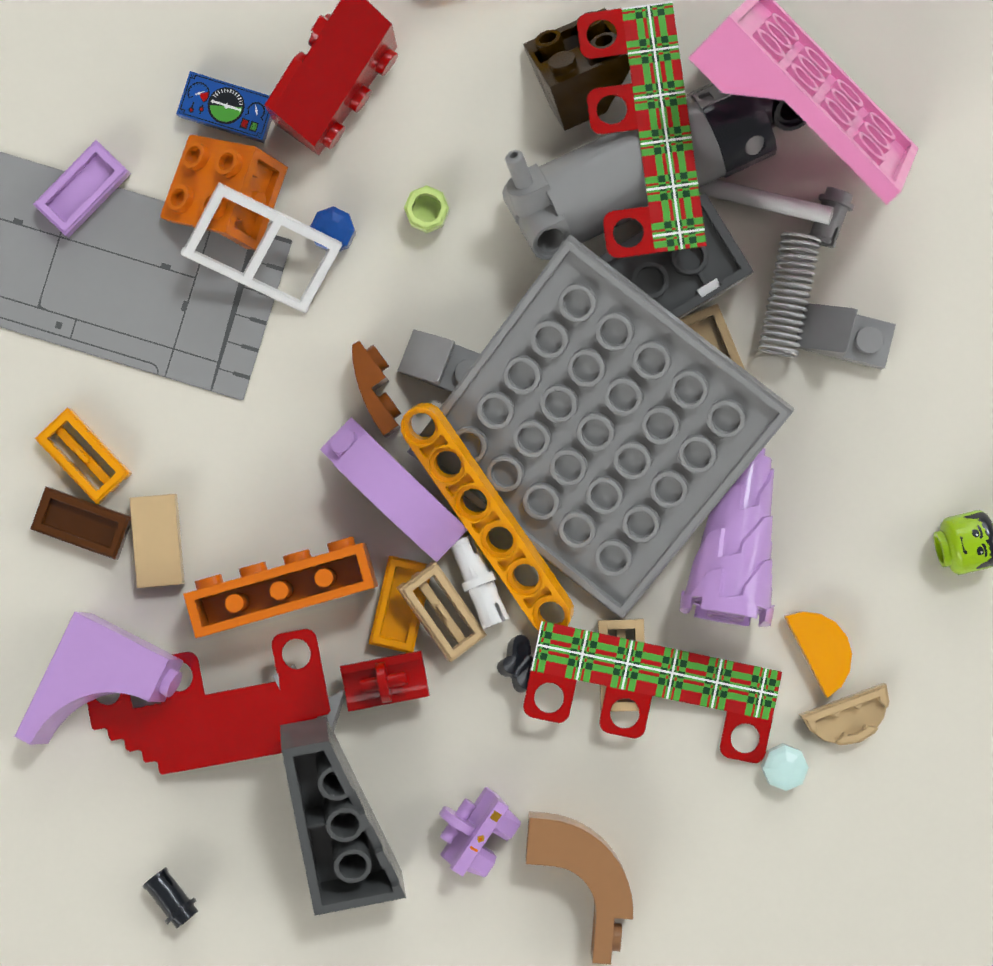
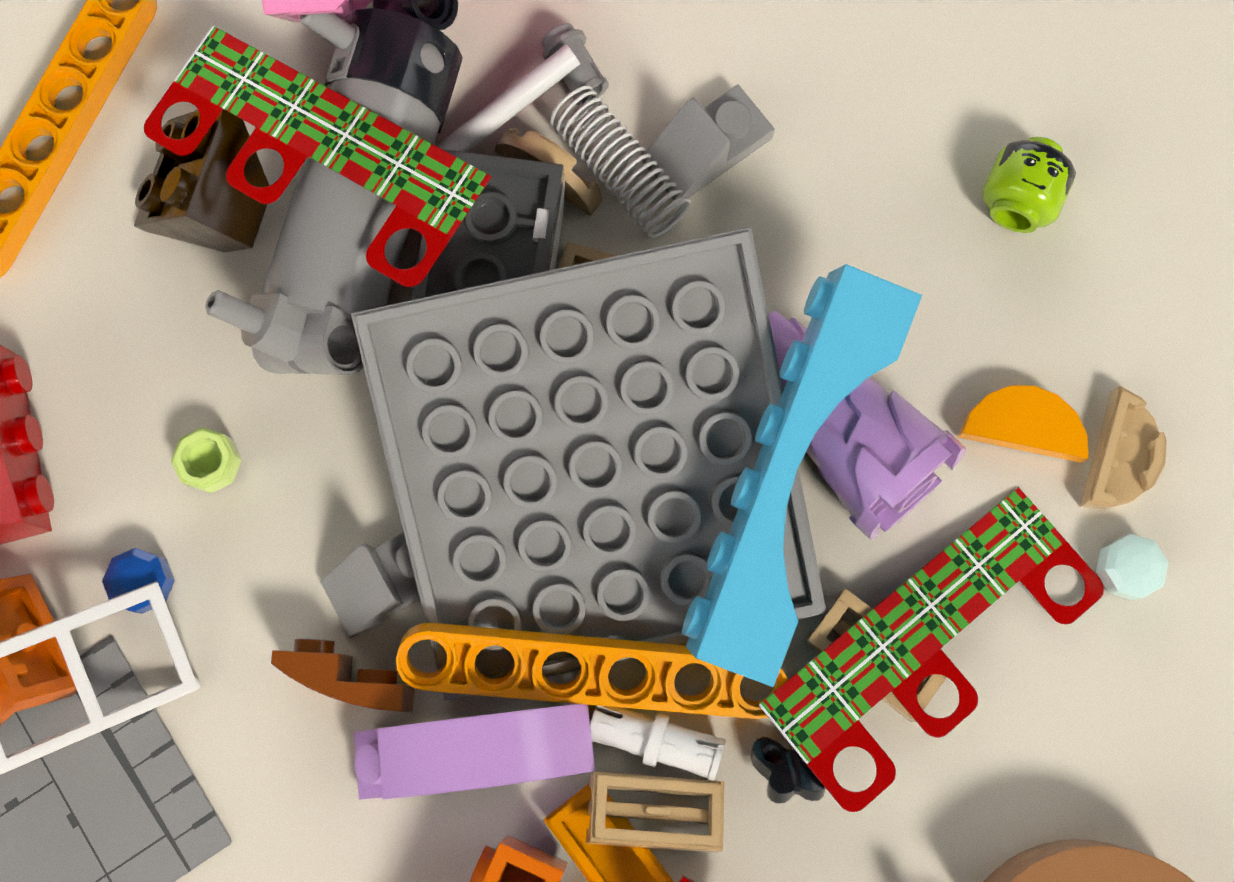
camera: 60 degrees left, 10 degrees down
(755, 253) = (539, 148): none -> tan tile
(772, 514) = (747, 609): none -> medium azure arch

